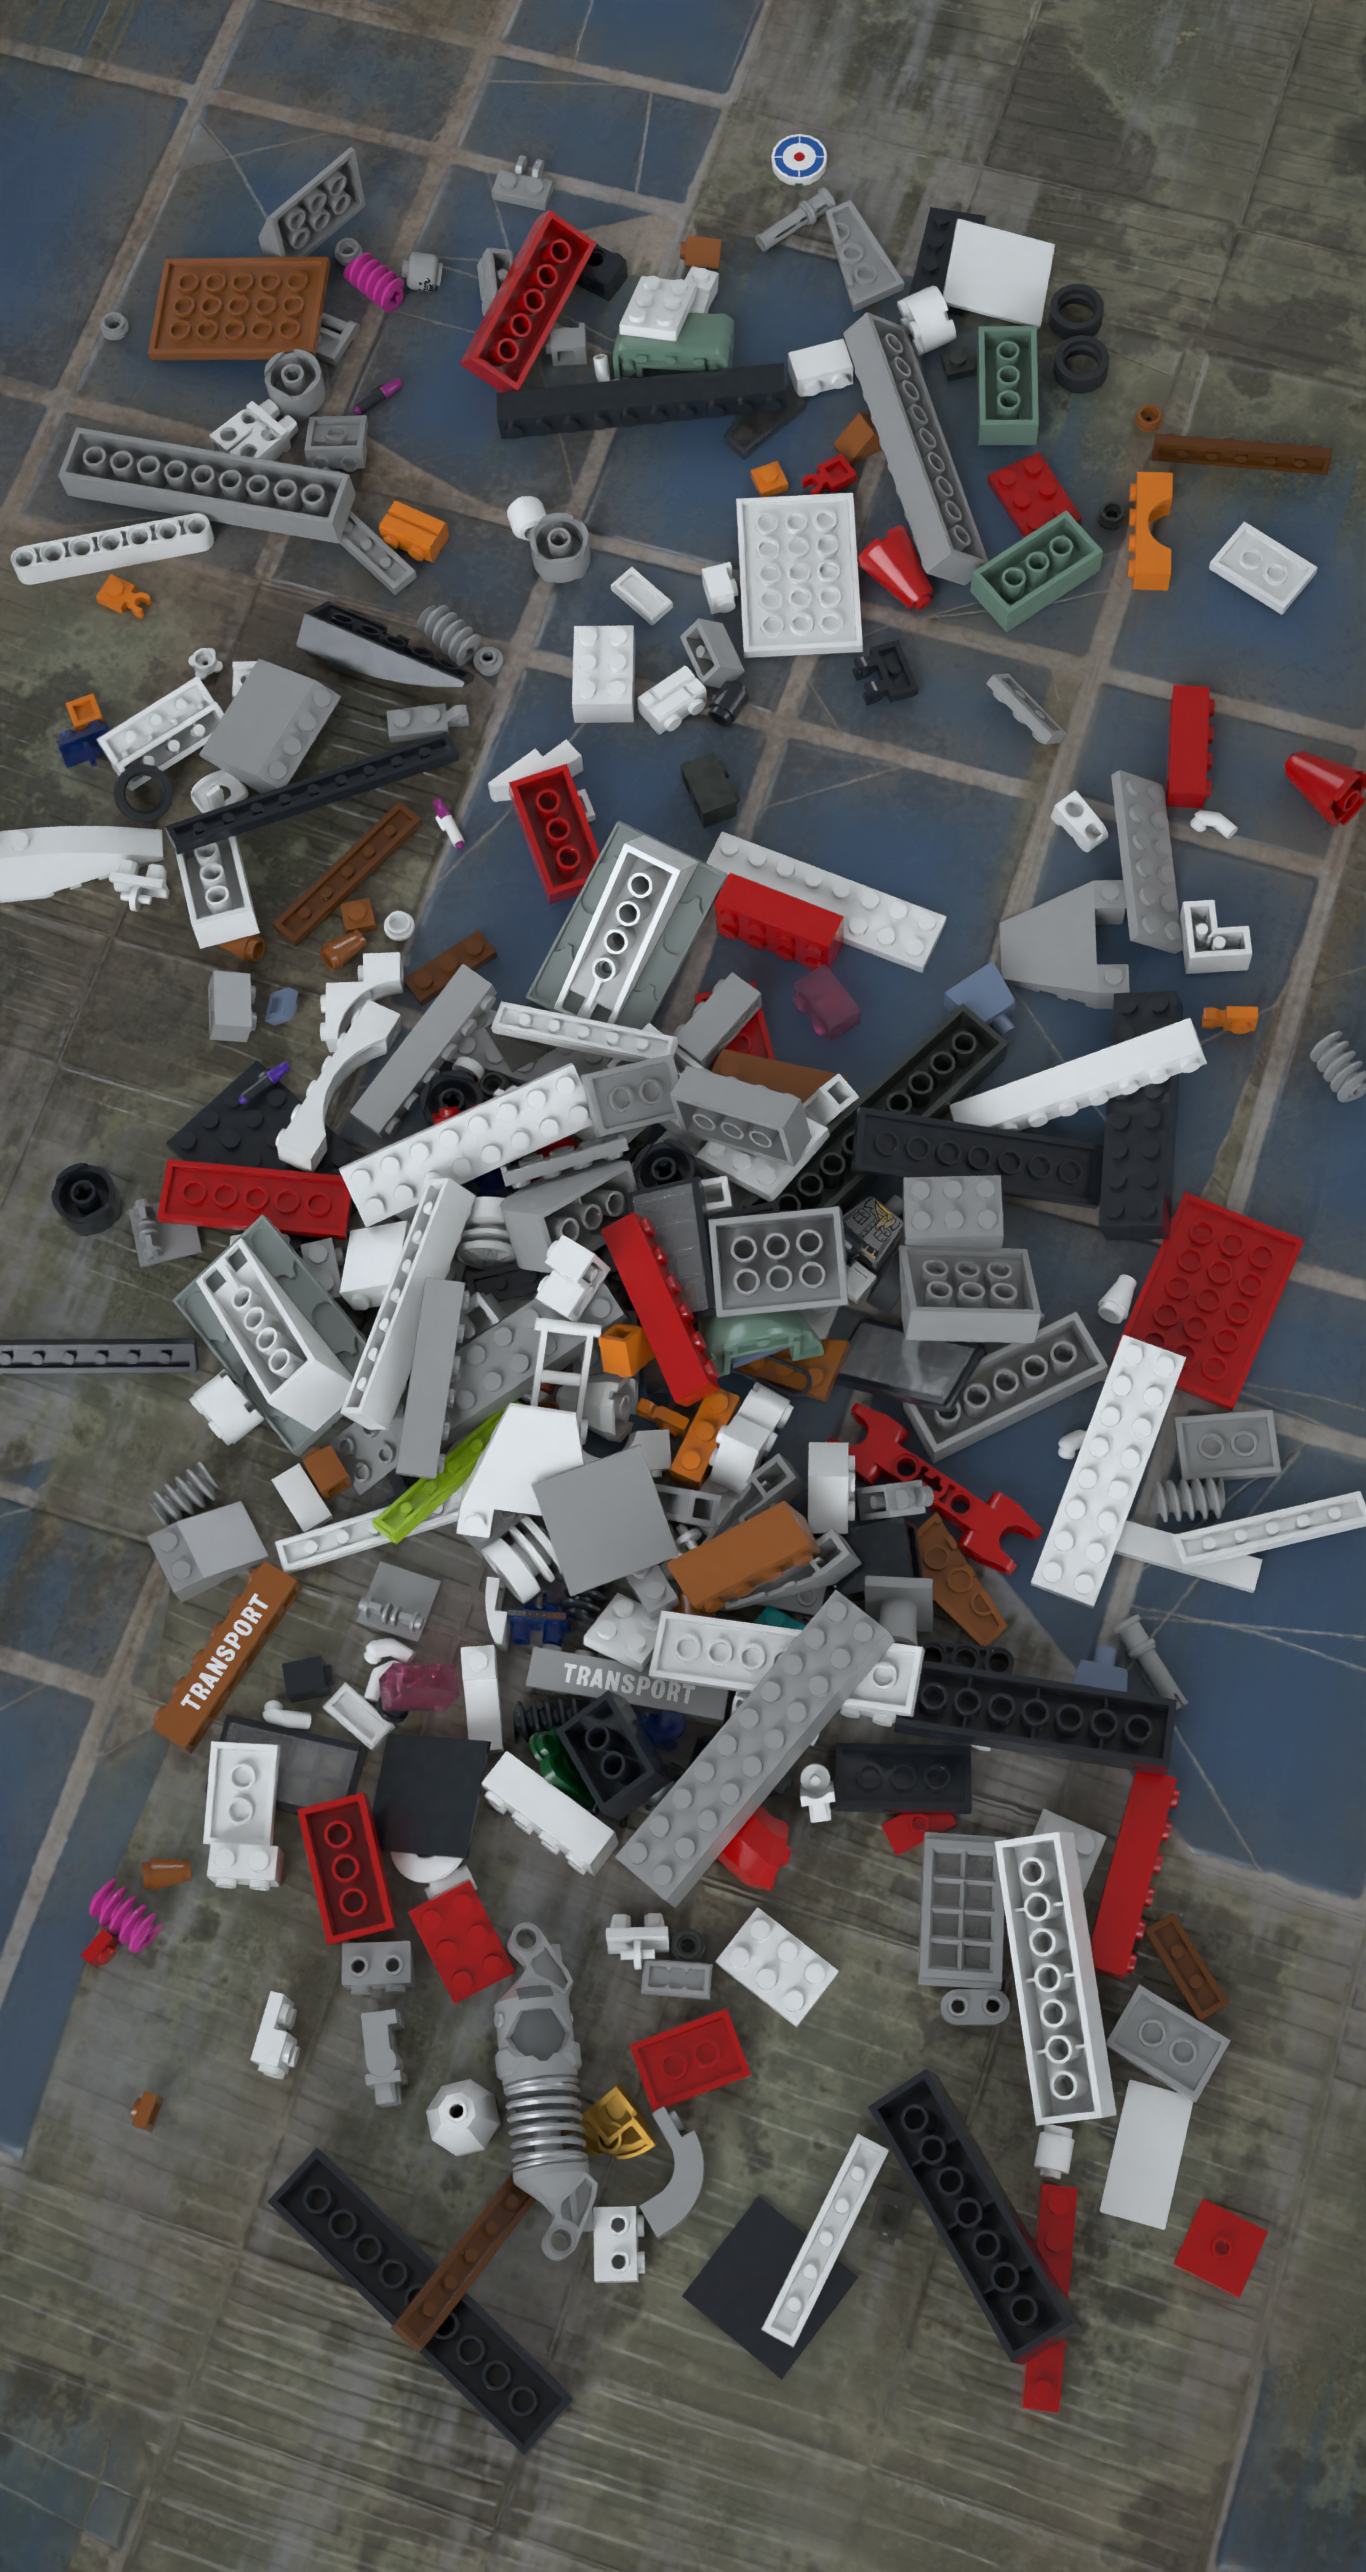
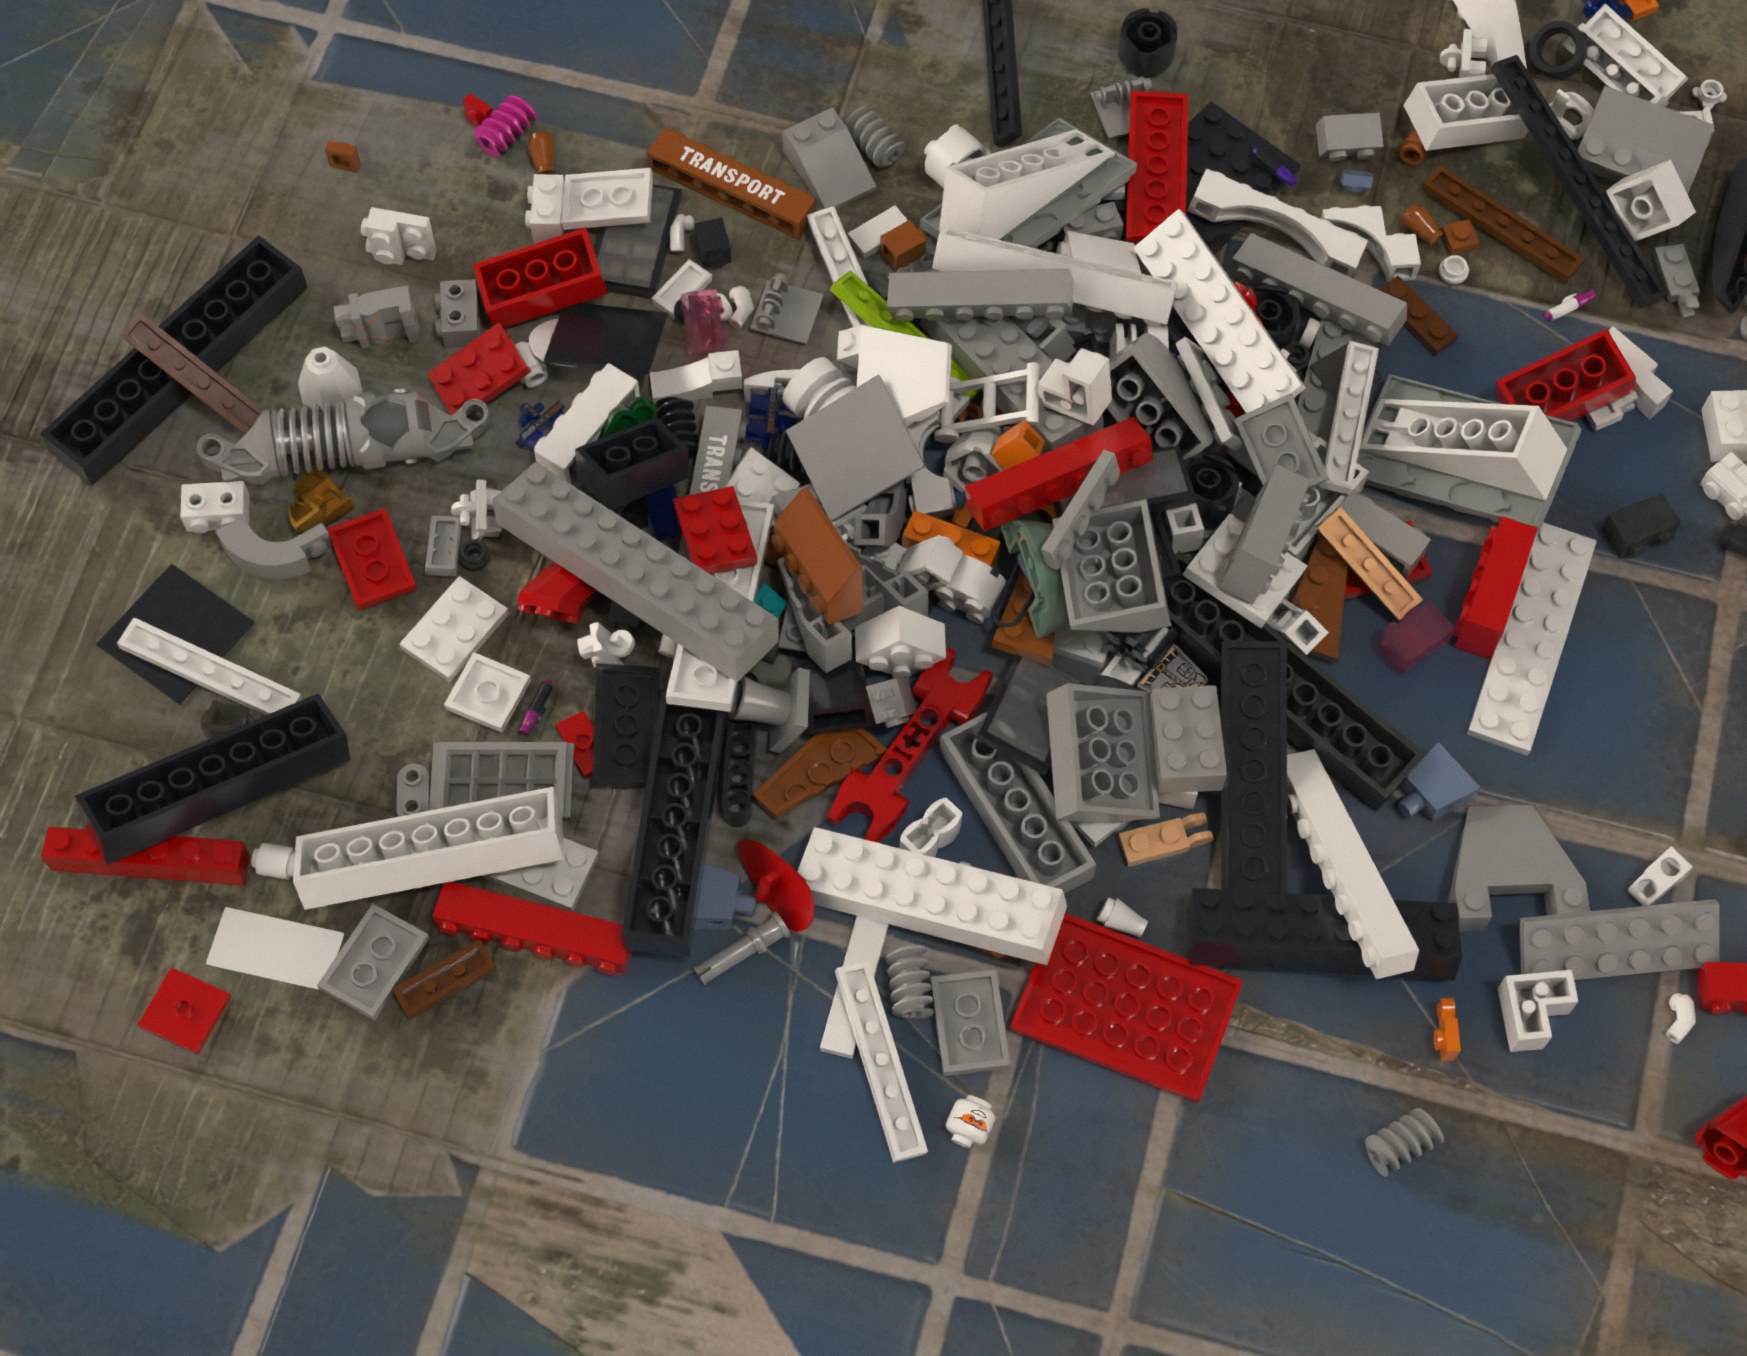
camera: 80 degrees right, 5 degrees down
(349, 727) = (1651, 200): none -> white brick
(528, 1874) = (533, 433): none -> clear blue hips
(699, 1669) = (715, 530): none -> red plate
(709, 1274) = (1077, 514): none -> light grey plate
(752, 1033) = (1368, 563): none -> light nougat plate
(858, 1927) = (487, 692): none -> white plate
(875, 1875) = (536, 709): none -> piece
(1026, 1466) = (935, 830): none -> white brick
(1038, 1252) = (1163, 839): none -> light nougat hinge
(1088, 1623) = (778, 885): none -> red shield
(1330, 1449) = (970, 1121): none -> white head

